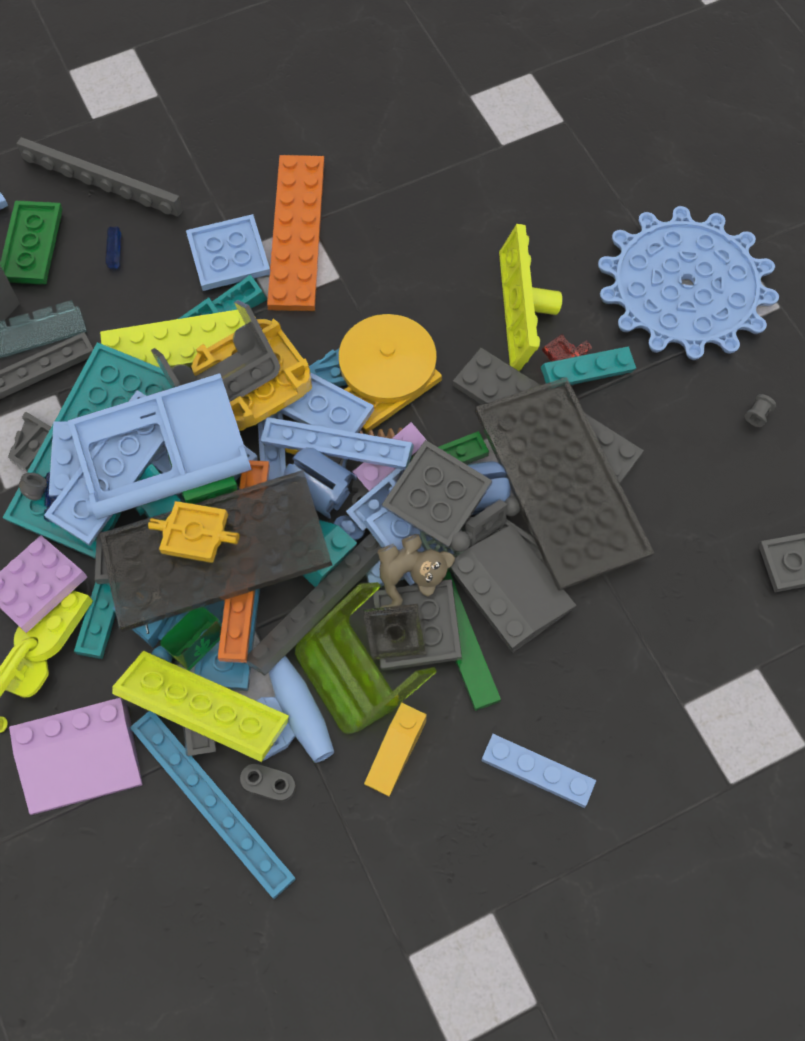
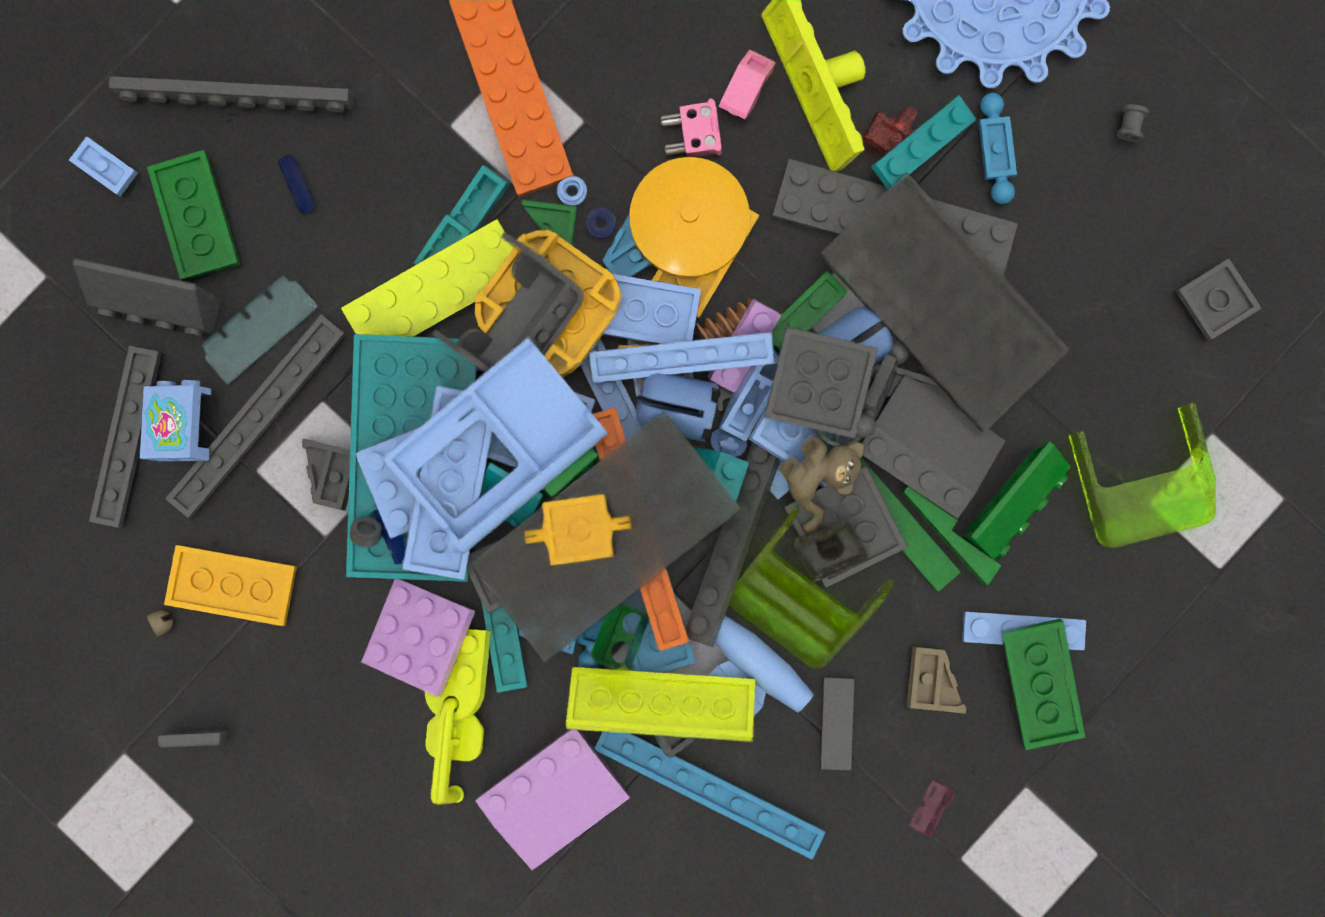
camera: 20 degrees left, 20 degrees up
(228, 252) = (438, 140): light blue plate -> none
(267, 781) = (757, 749): dark grey plate -> none
(293, 330) = (553, 217): none -> green tile
(309, 310) = (565, 184): none -> light blue plate
(320, 338) = (600, 213): none -> clear blue plate
(345, 788) = (837, 723): none -> dark grey tile
(394, 901) = (932, 802): none -> clear pink piece
(395, 749) = (874, 666): yellow slope -> none
(421, 305) = (701, 129): none -> bright pink piece
(441, 783) = (932, 683): none -> dark tan wing
(467, 288) = (746, 84): none -> bright pink slope
(499, 653) = (942, 523): none -> green slope
(538, 819) = (1043, 684): none -> green plate
(568, 655) = (1017, 500): none -> green slope
(645, 393) = (997, 148): none -> dark azure plate
(686, 701) = (1155, 503): none -> clear neon green windscreen

